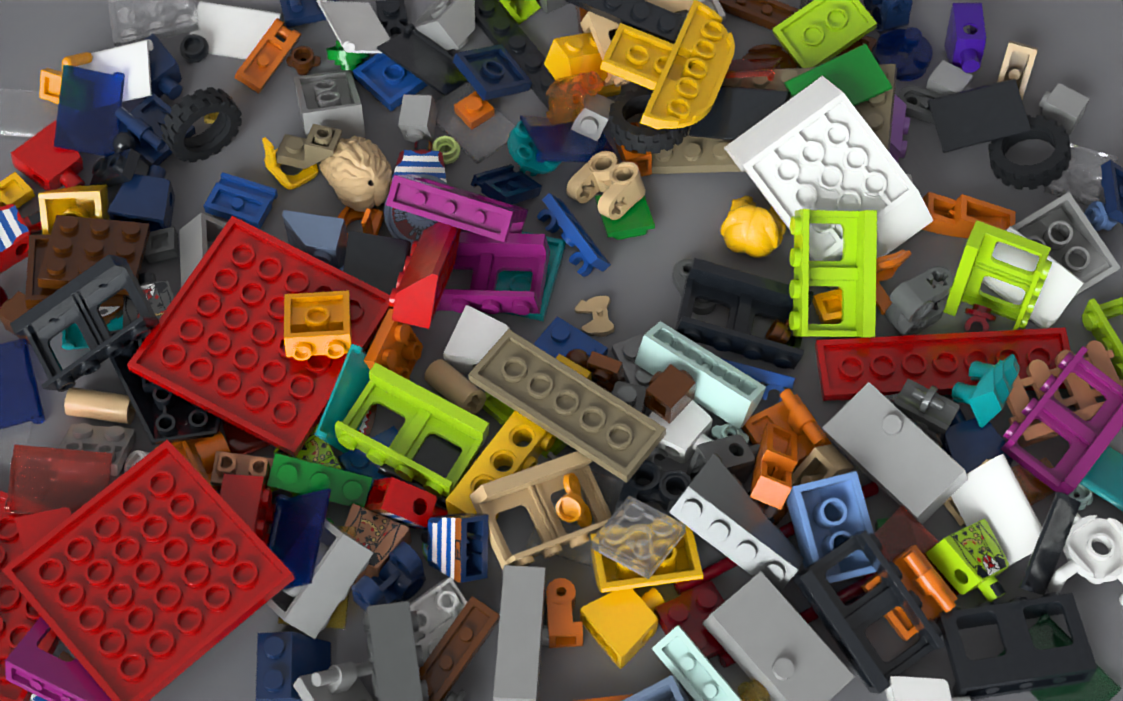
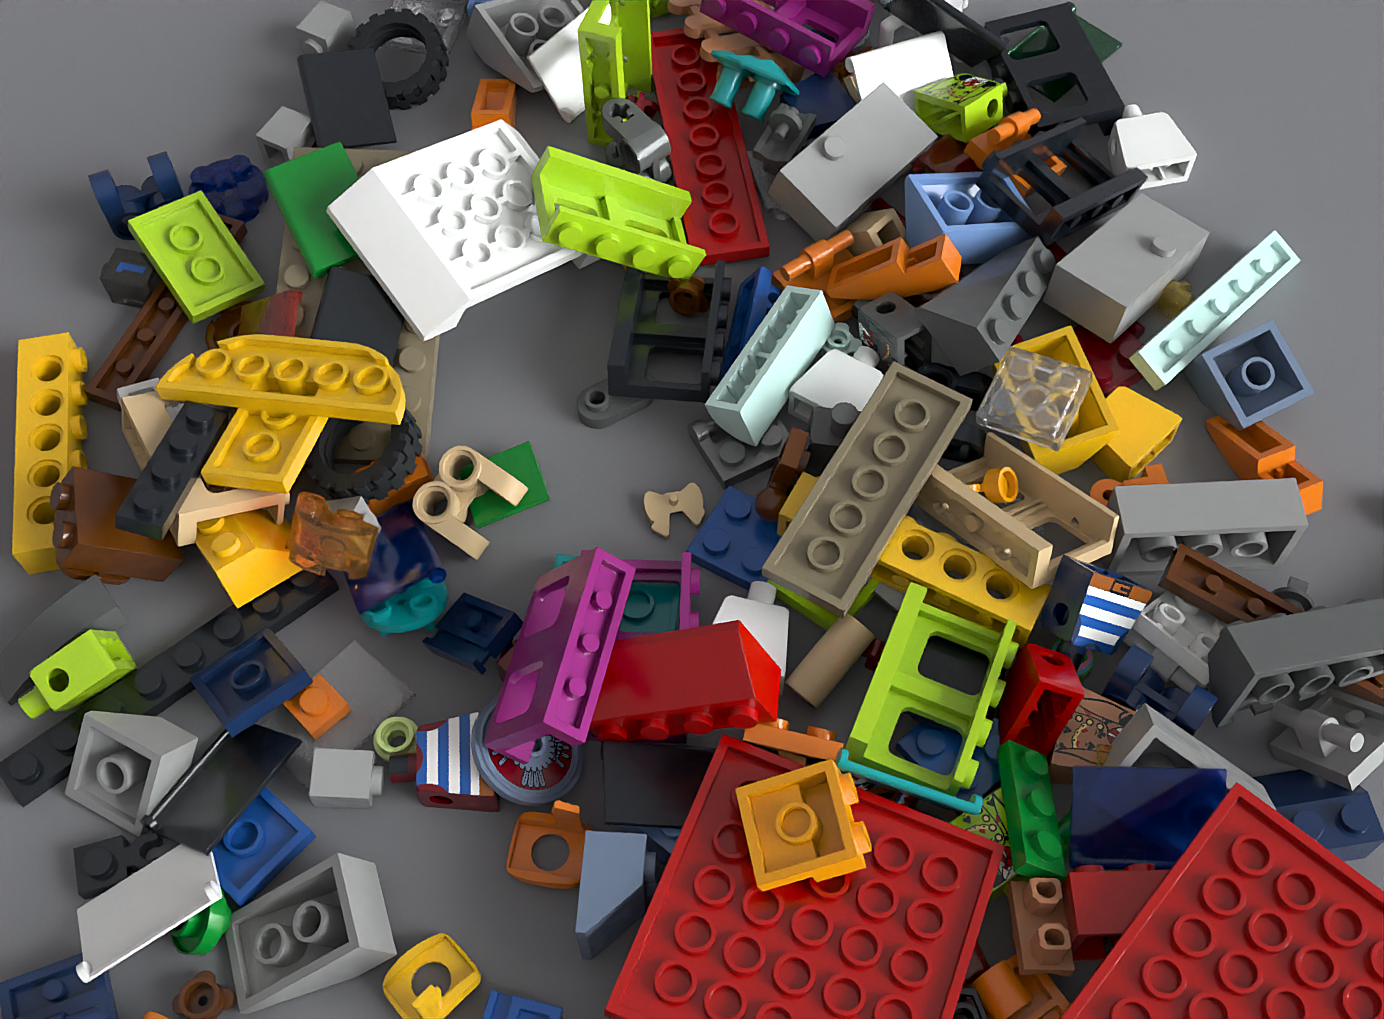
camera: 95 degrees left, 0 degrees up
(306, 152) = (420, 927): dark tan slope -> none
(352, 168) = (451, 860): tan hair -> none
(573, 235) = (549, 543): blue plate -> none
(670, 392) = (815, 380): reddish brown brick -> none
(752, 228) = (543, 325): yellow hair -> none
(962, 48) = (224, 110): dark purple torso -> none
(1018, 64) = (264, 75): tan slope -> none

